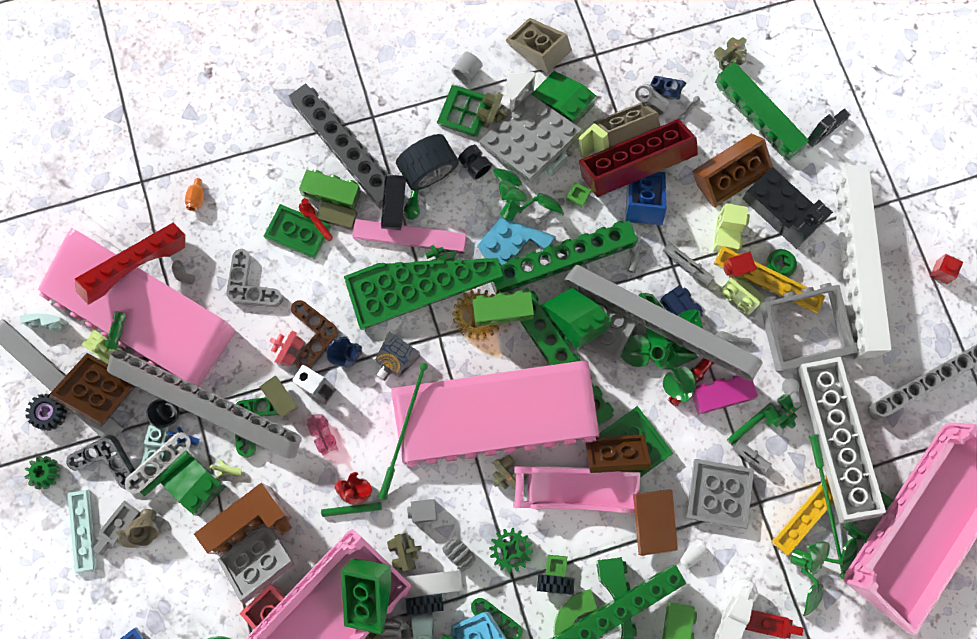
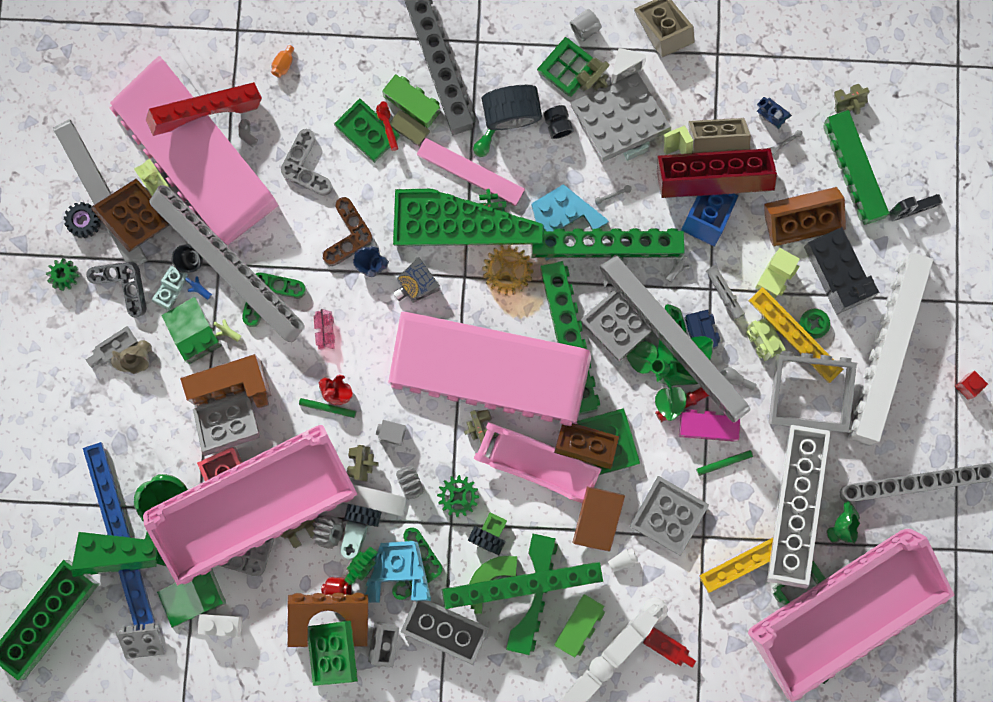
camera: 20 degrees right, 5 degrees up
(48, 321) = (110, 136): light aqua slope -> none
(82, 531) = (81, 340): light aqua tile -> none
(115, 330) = (169, 167): green axle -> none
(155, 460) = (167, 300): white beam -> none
(169, 470) = (172, 314): green bar -> none
(278, 396) = (296, 281): olive tile -> none
(293, 341) = (326, 233): coral hips -> none
(312, 383) = (331, 280): torso -> none
(365, 595) = (313, 486): green slope -> none
(390, 470) = (375, 385): green piece -> none
(393, 202) = (466, 135): black beam -> none
(503, 308) = (531, 273): bright green brick -> none
(513, 195) = (580, 171): green plant -> none
(565, 96) = (669, 87): green slope -> none
(577, 317) = (598, 305): green slope -> none
(578, 194) = (646, 188): bright green plate -> none
(654, 99) = (754, 120): light grey piece -> none
(739, 265) = (769, 311): red brick -> none
(752, 456) = (712, 492): light grey pin -> none
(784, 416) = (765, 460): green hips -> none
(791, 387) = (774, 444): light grey piece -> none
(814, 561) = (725, 602): green plant -> none
(820, 464) = (770, 522): green piece -> none
(888, 443) = (845, 526): none -> green hair

